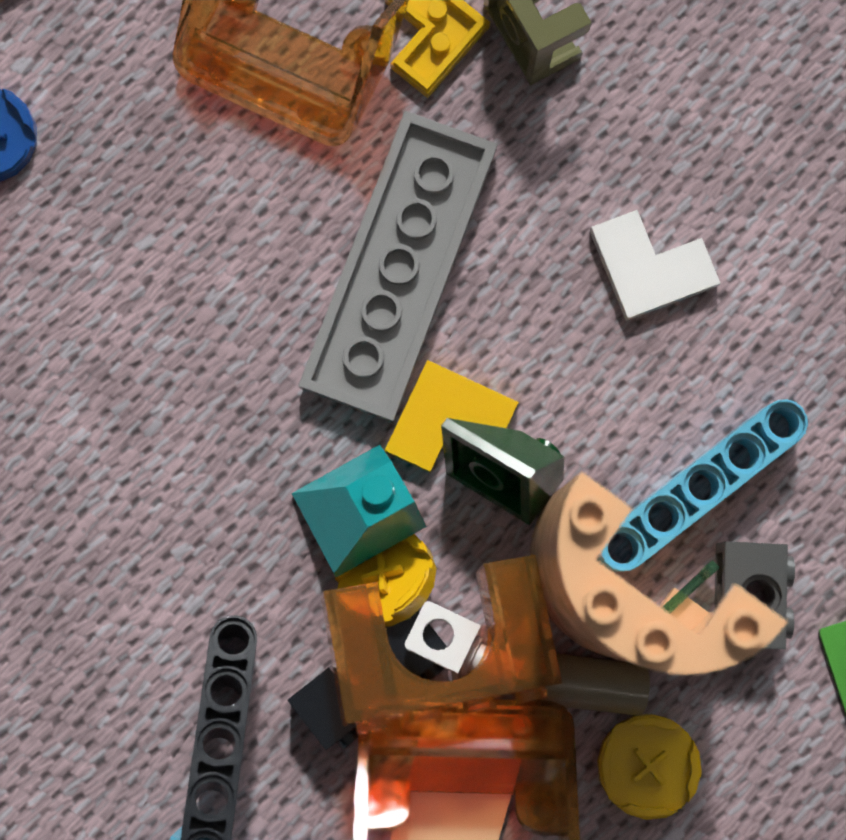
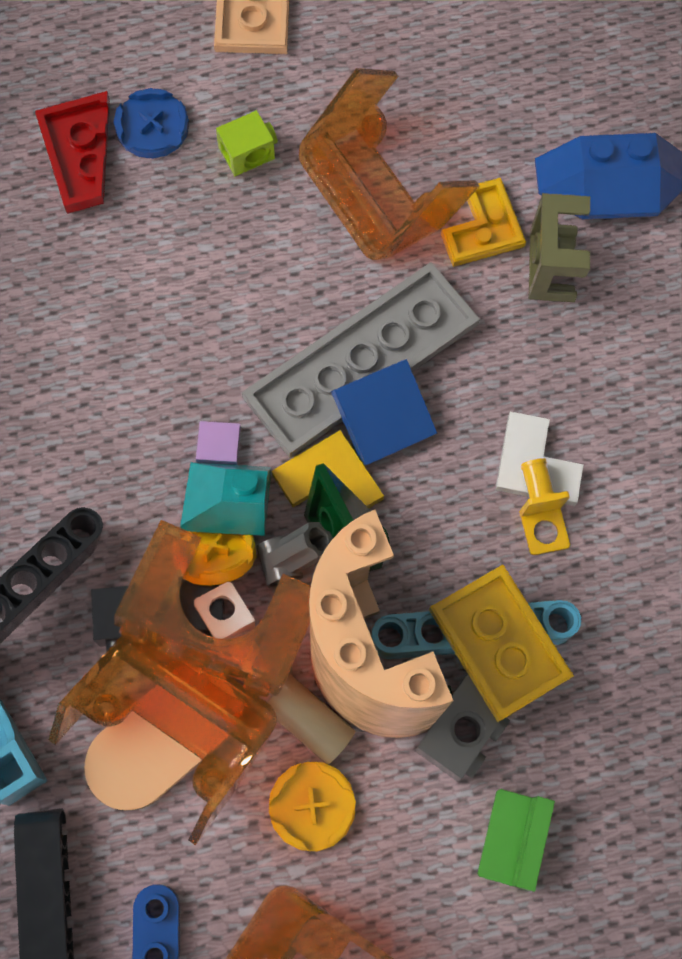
camera: 30 degrees right, 10 degrees down
(112, 94) = (246, 142): none -> lime brick
(307, 454) = (218, 443): none -> lavender tile
(462, 312) = (384, 412): none -> blue tile
(467, 530) = (292, 552): none -> dark grey piece
(688, 309) = (542, 506): none -> yellow bracket
(741, 487) = (500, 643): none -> yellow tile

